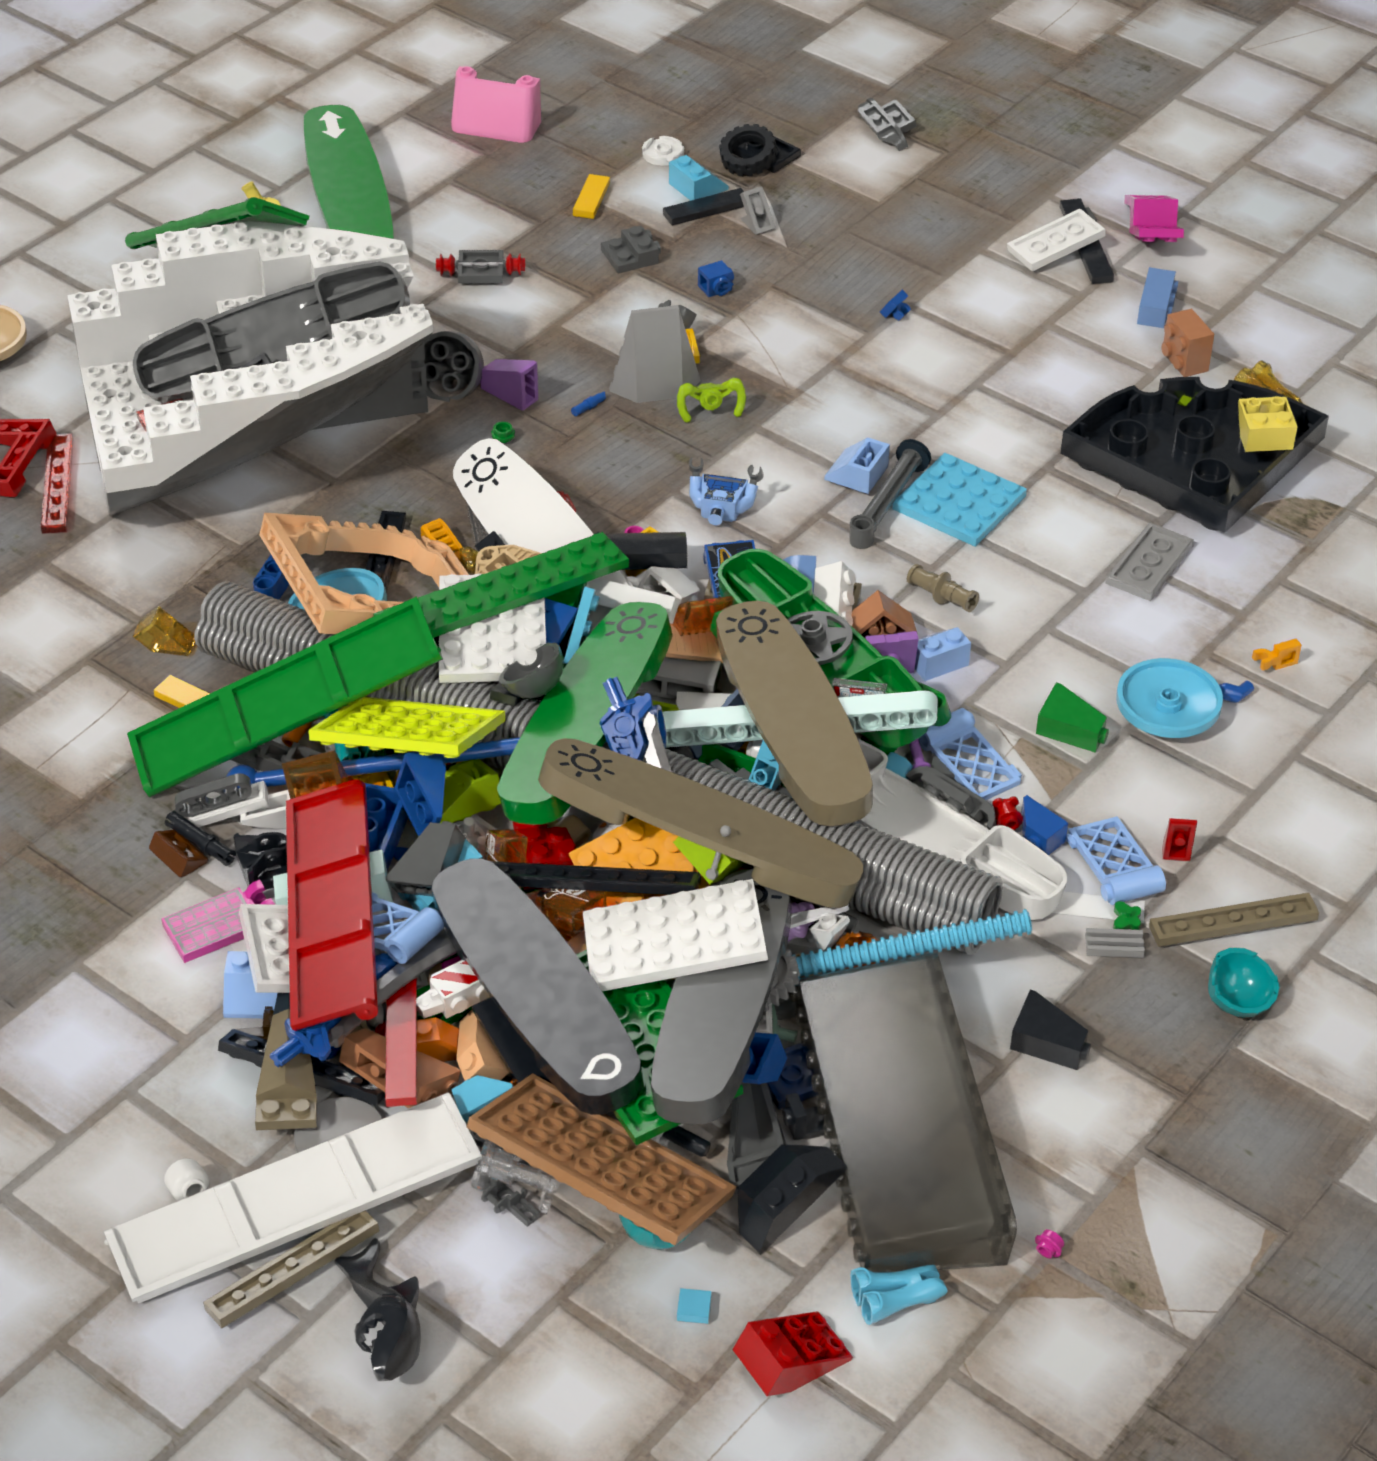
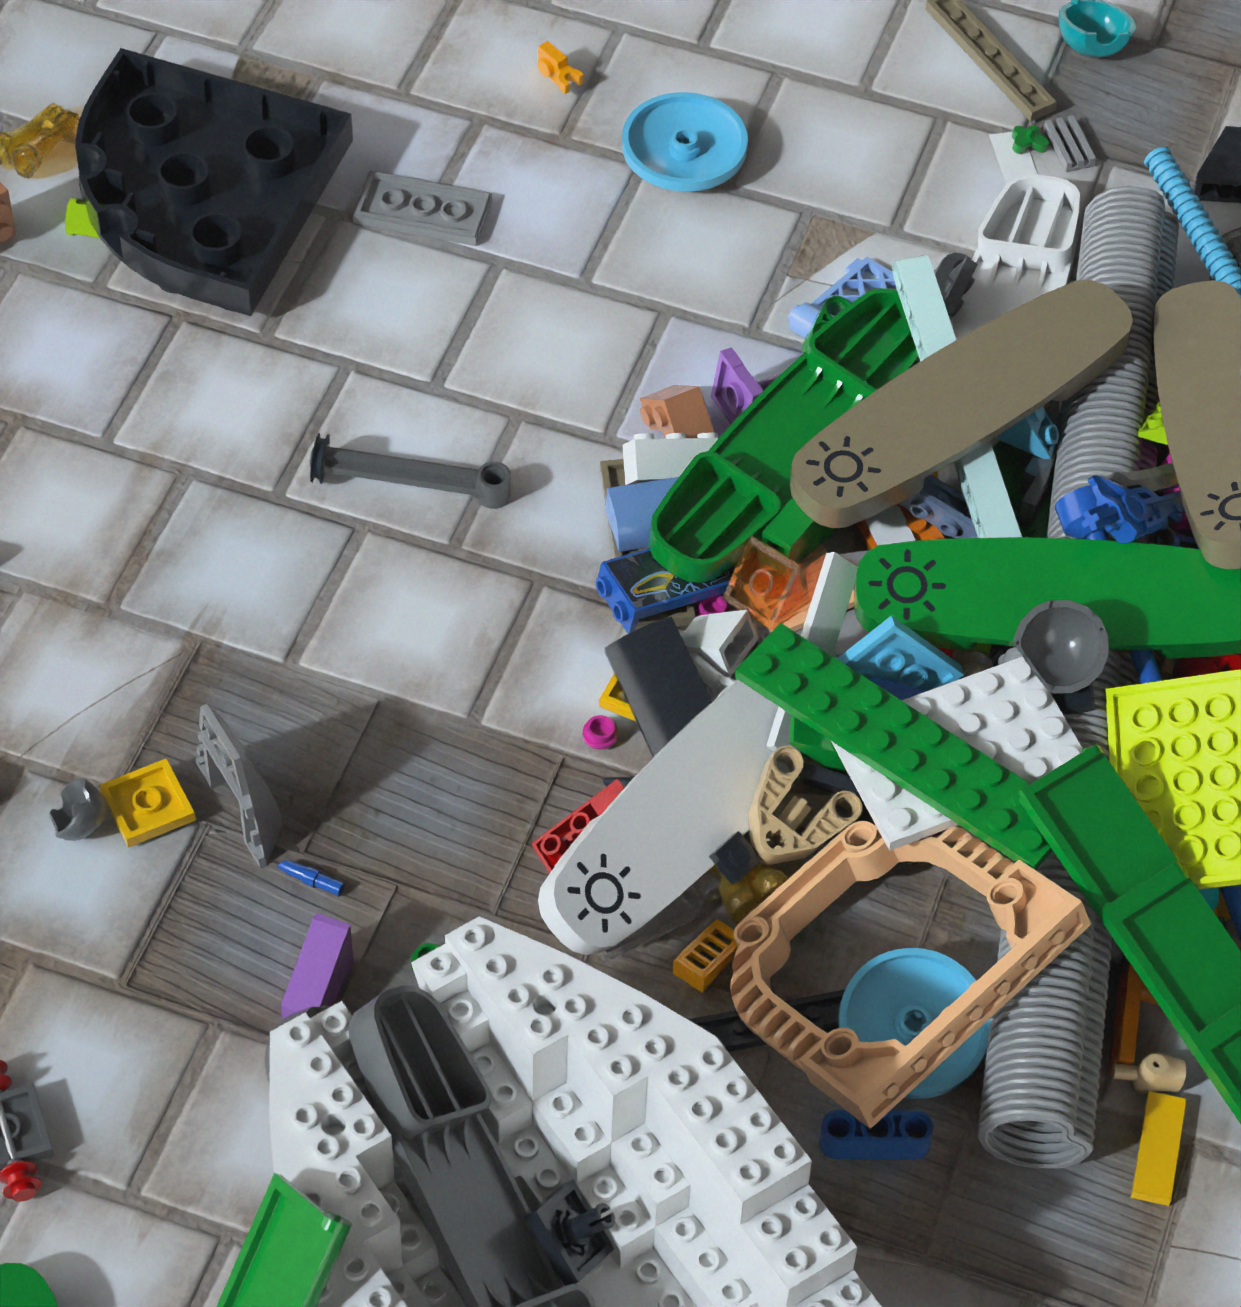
camera: 110 degrees left, 10 degrees up
(164, 634) = (1064, 1229): clear yellow slope -> none
(710, 396) = (267, 716): lime piece -> none
(722, 496) = (482, 646): light blue torso -> none
(820, 637) = (778, 438): dark grey wheel -> none
(850, 688) = (901, 341): tile -> none
(860, 465) = (359, 513): light blue slope -> none
(942, 653) = (684, 358): light blue slope -> none
(943, 588) = (573, 379): dark tan piece -> none
(959, 499) = (372, 403): medium azure plate -> none
(1007, 812) = (935, 249): red brick -> none
(1042, 826) = (942, 222): blue slope -> none
(1071, 720) = (750, 227): green slope -> none
(1128, 881) = (973, 128): light blue piece -> none
(1179, 839) = (909, 102): red slope -> none
(1236, 693) = (627, 97): blue arm -> none
(1266, 424) = (187, 83): light yellow slope -> none

